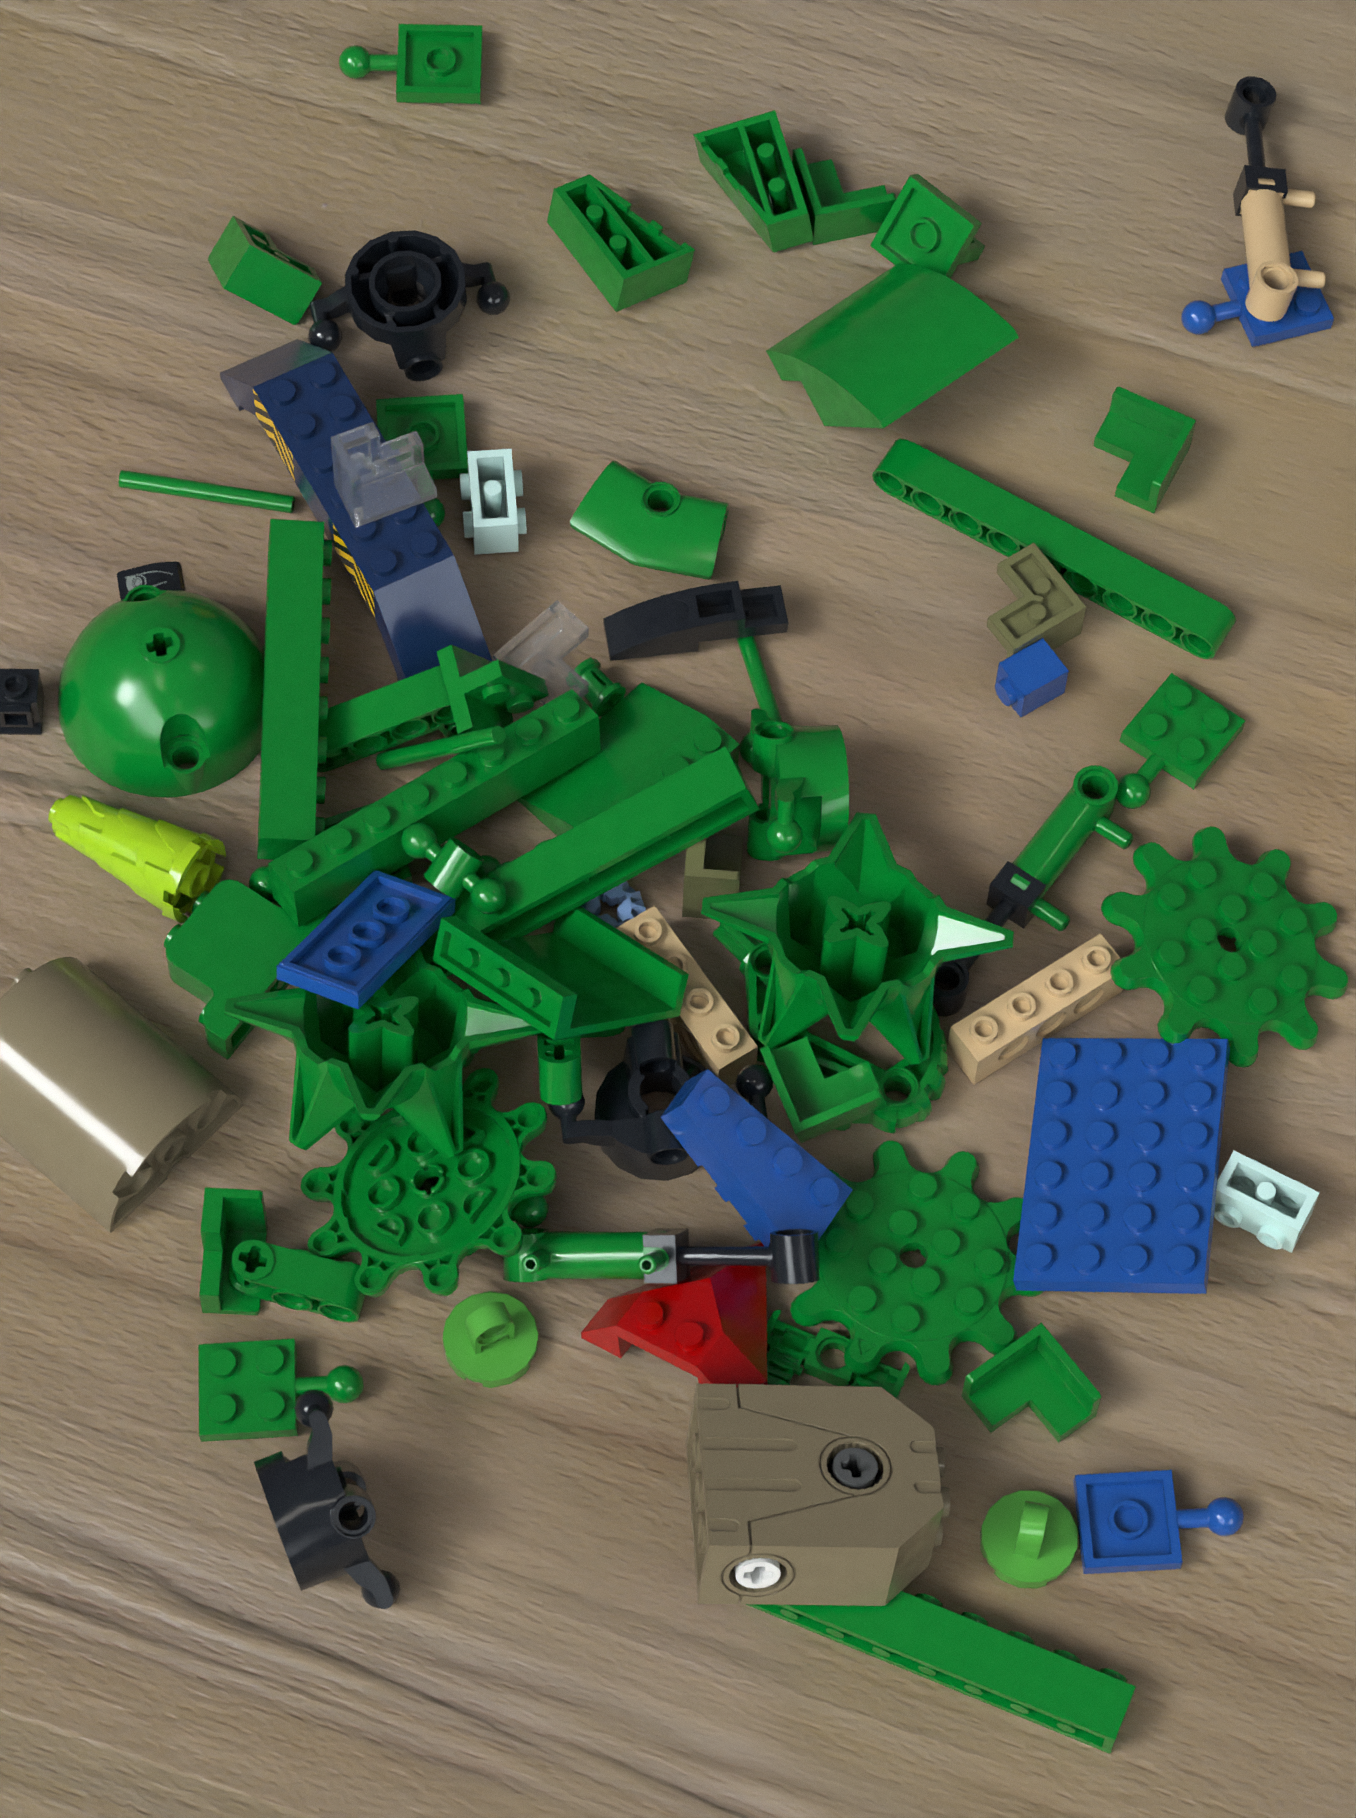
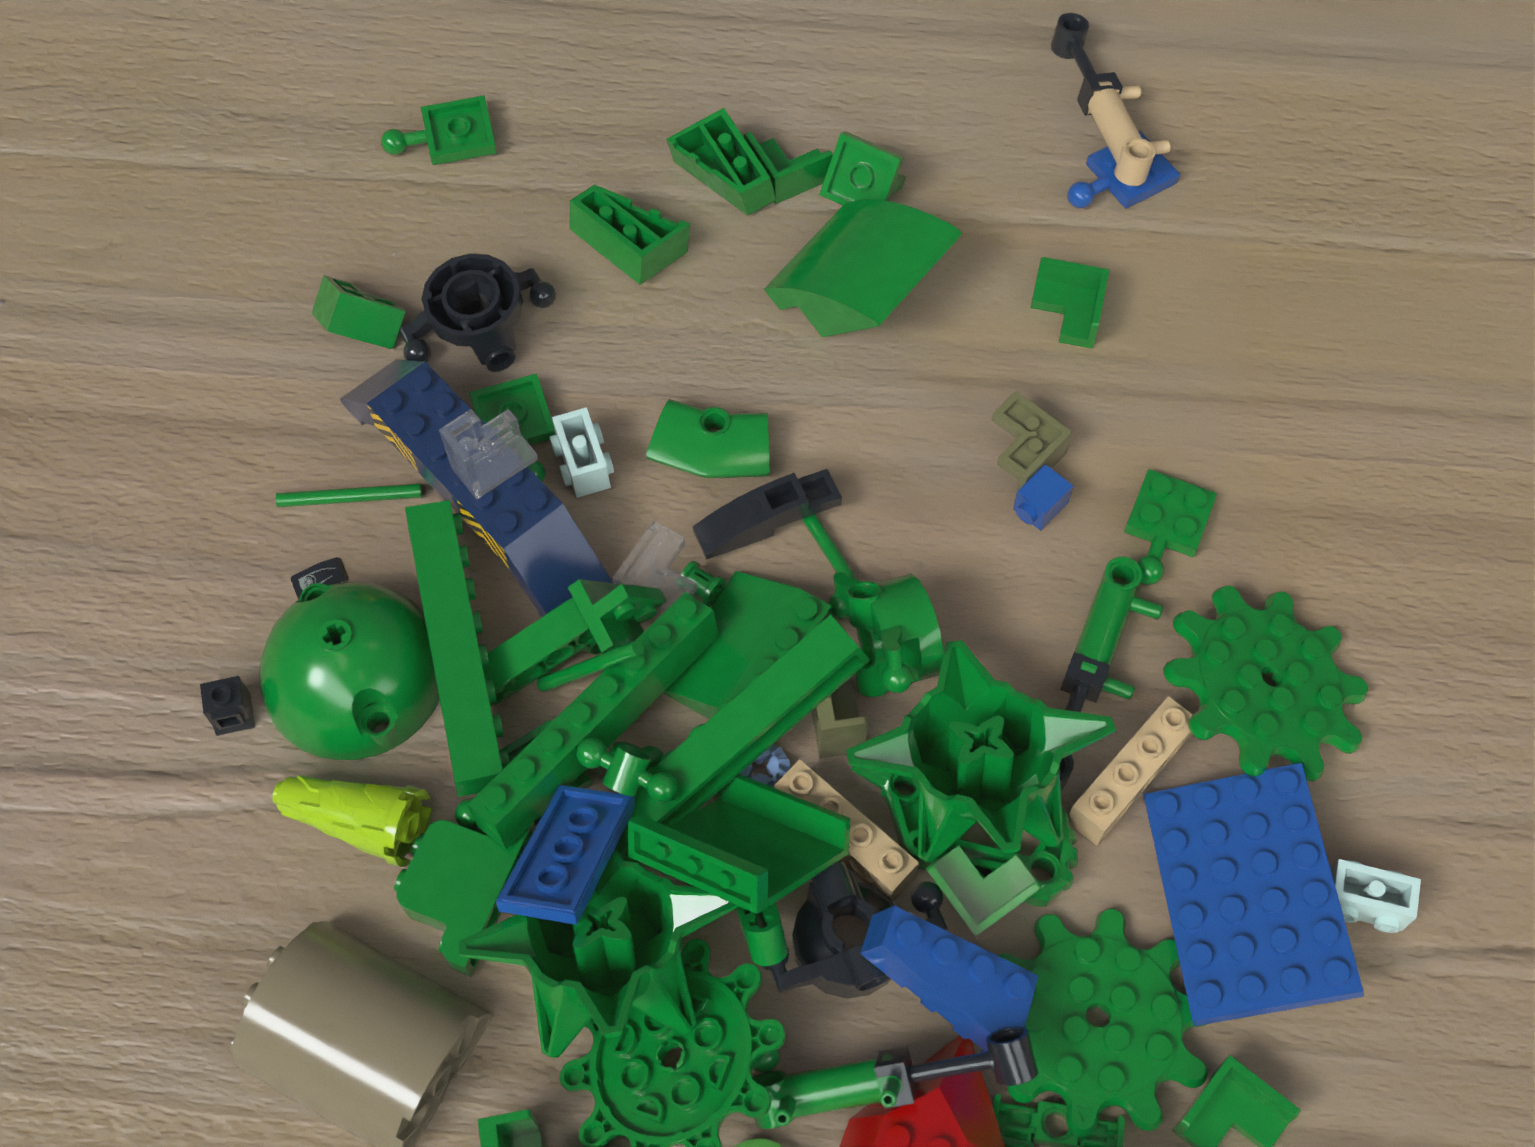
camera: 10 degrees left, 0 degrees up
(1083, 561) = (994, 381): green beam -> none

